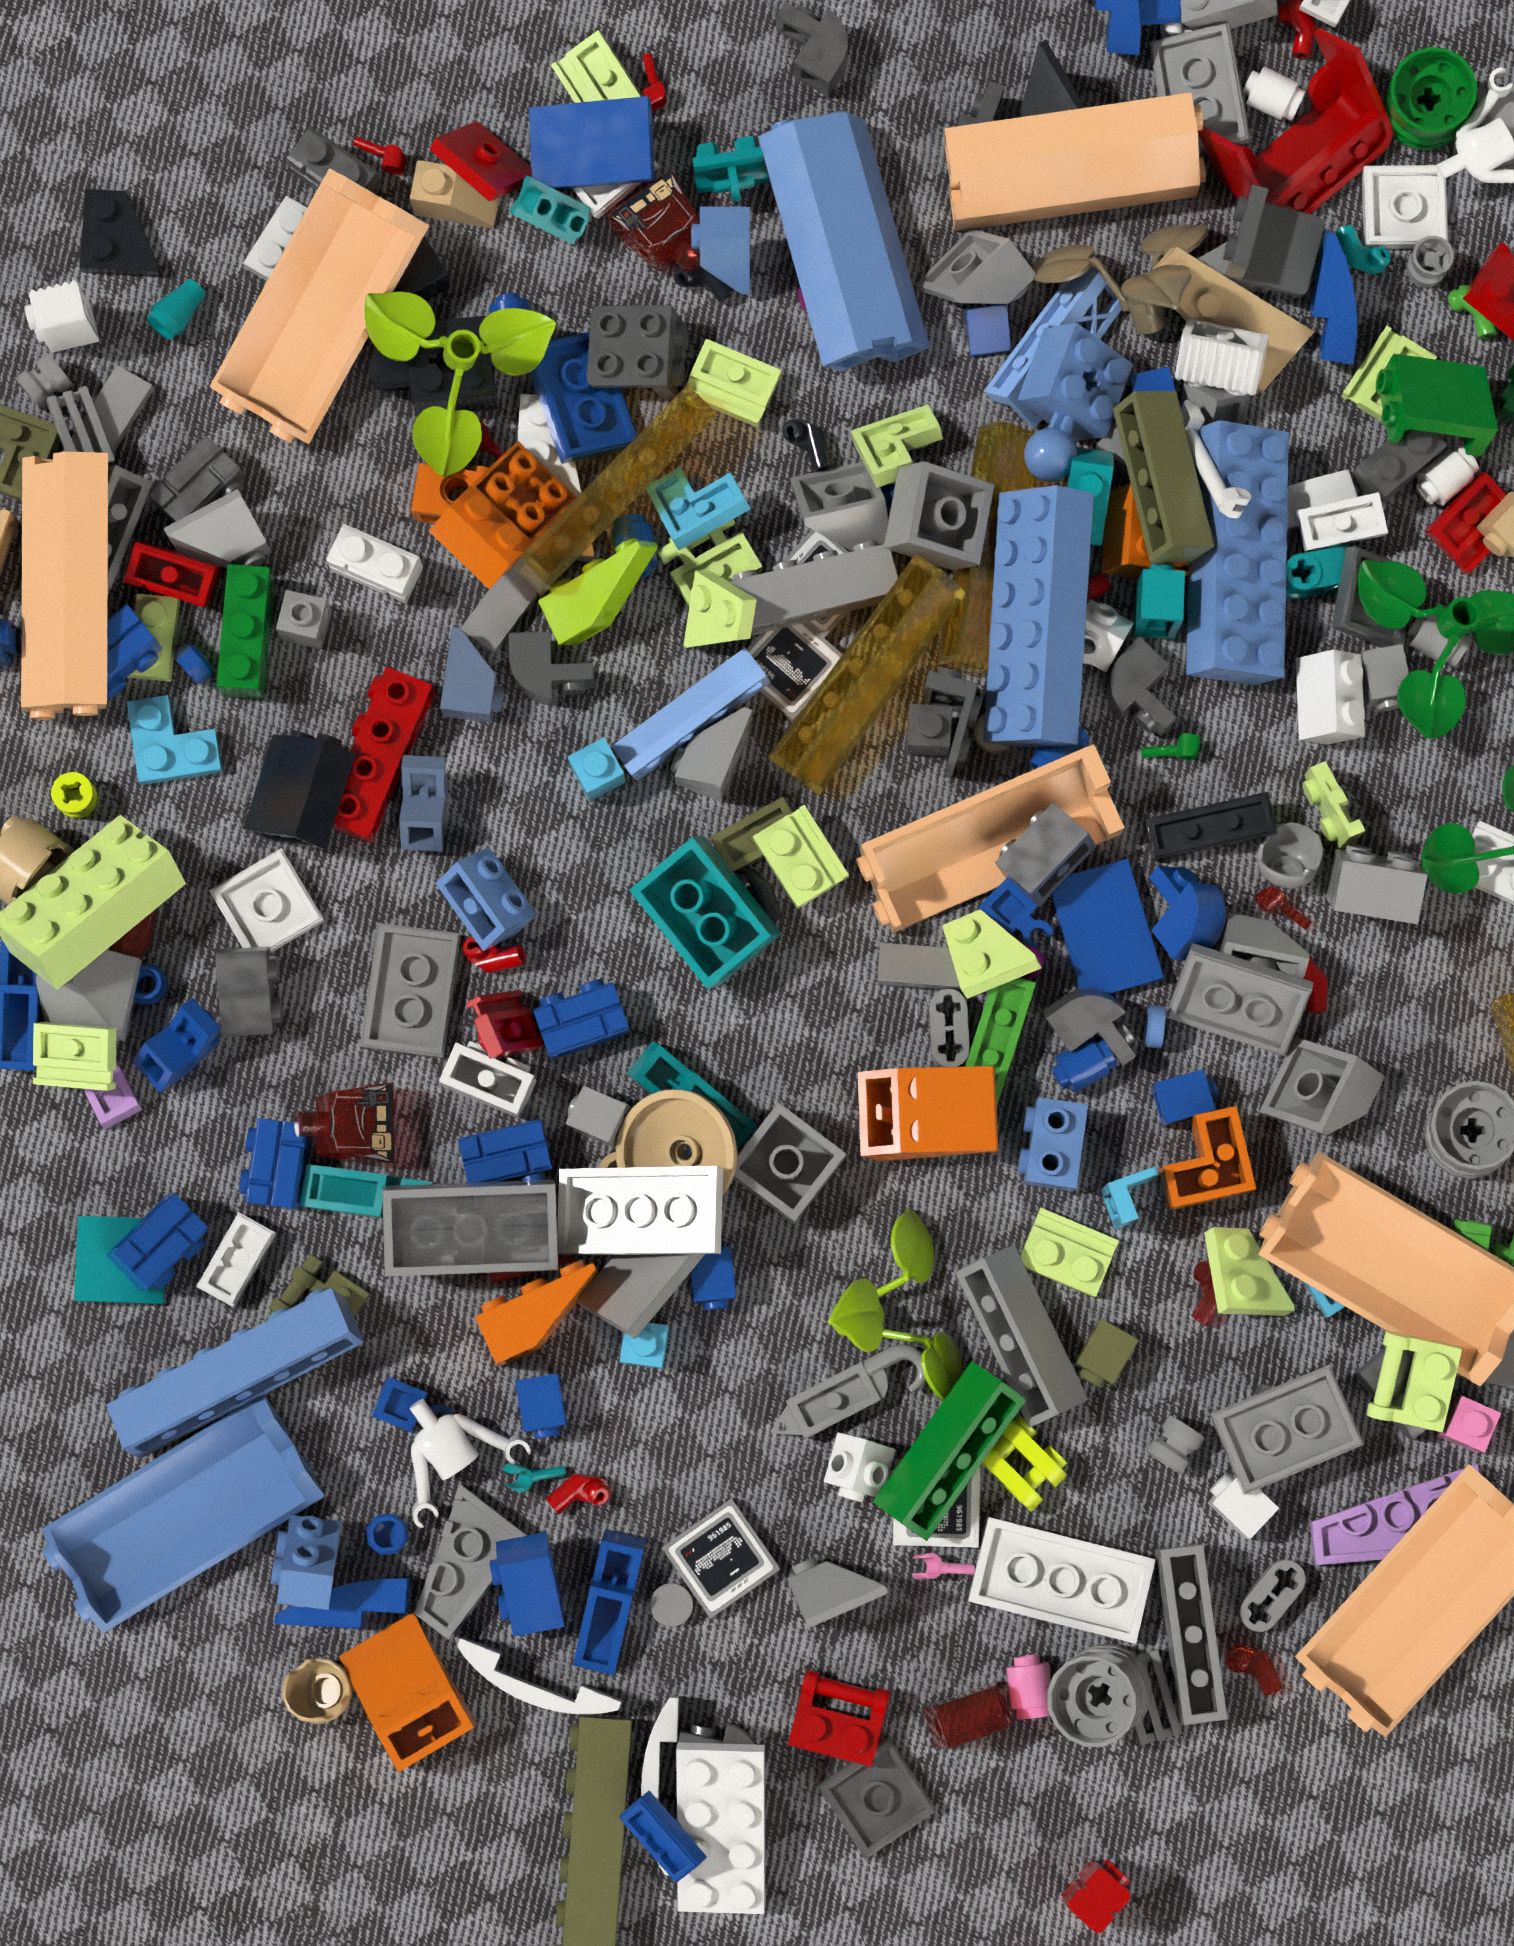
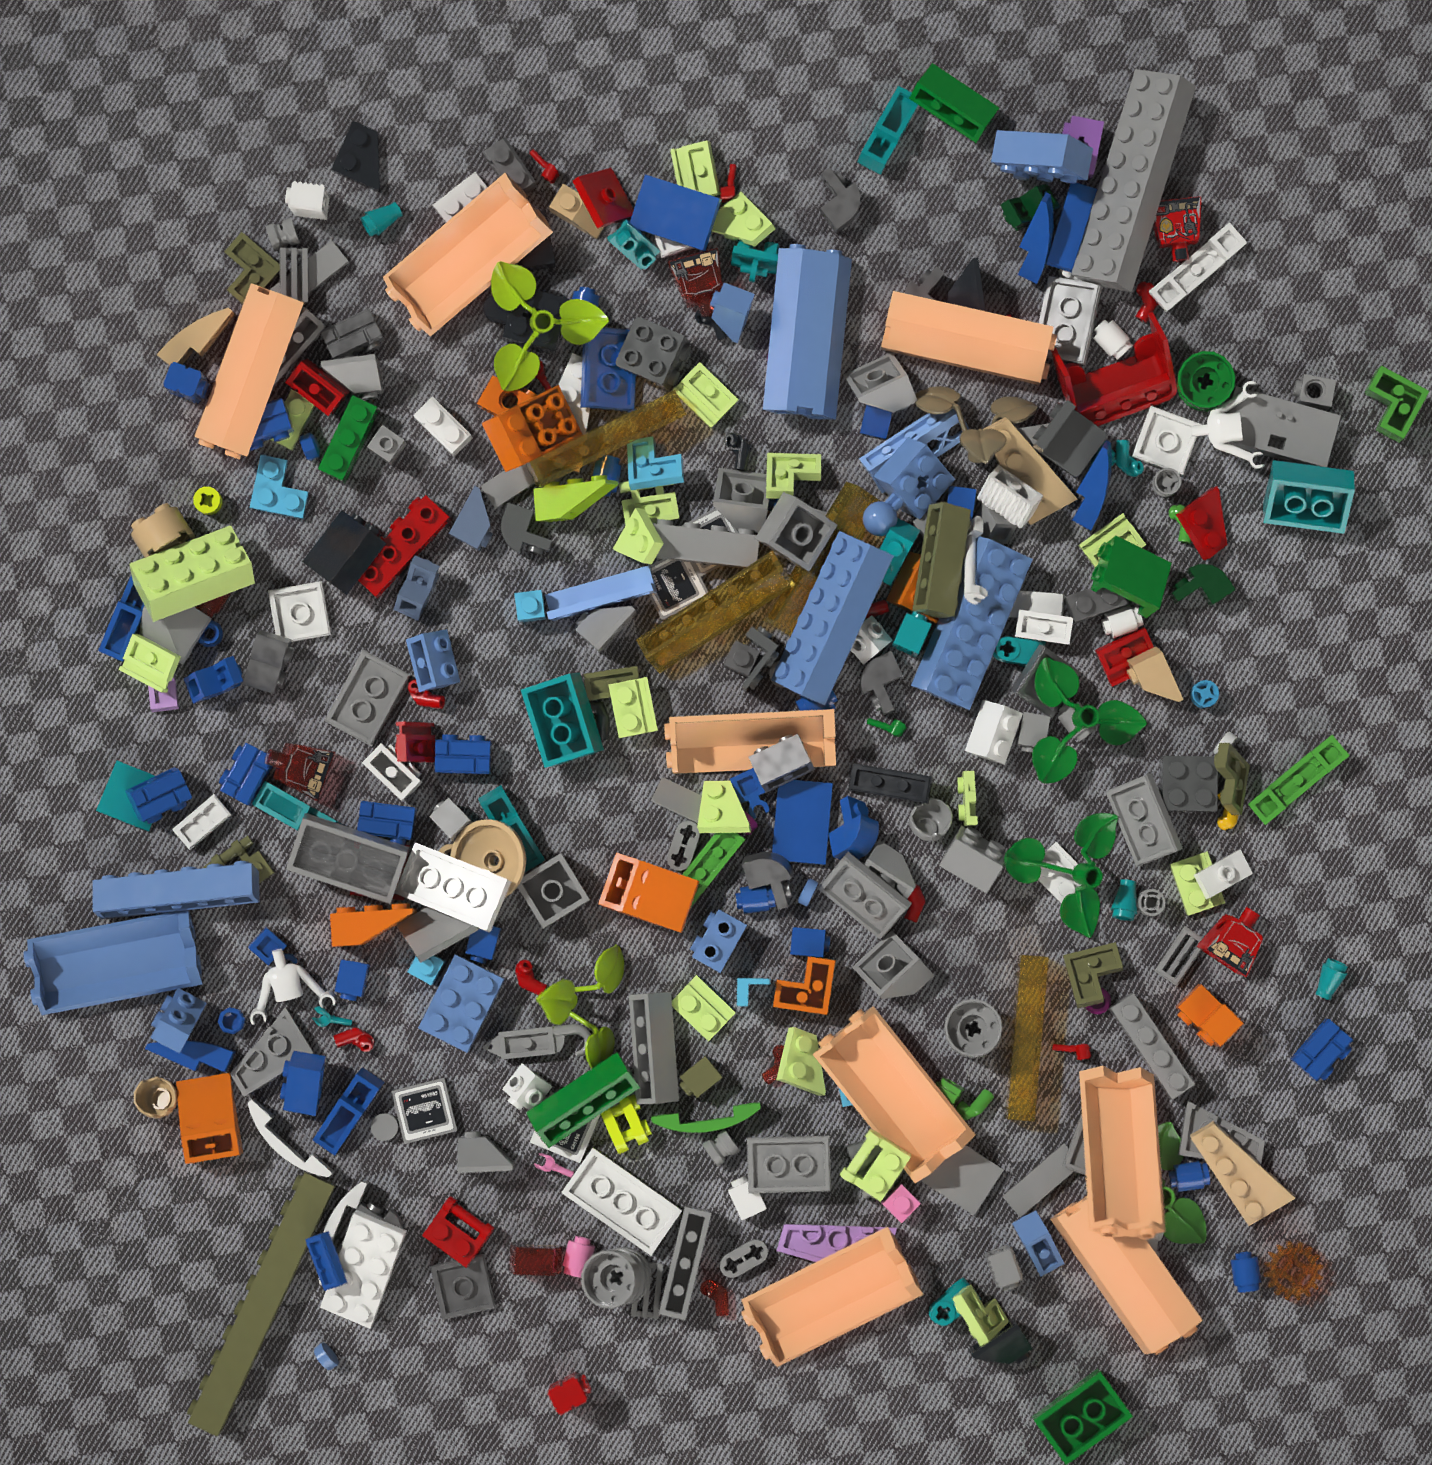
camera: 25 degrees right, 5 degrees up
(692, 123) = (742, 221): none -> yellowish green wing
(716, 1378) = (461, 1003): none -> medium blue brick
(796, 1308) = (526, 978): none -> red arm
(1183, 1384) = (672, 1120): none -> bright green slope
(1273, 898) = (911, 841): clear red hand -> none

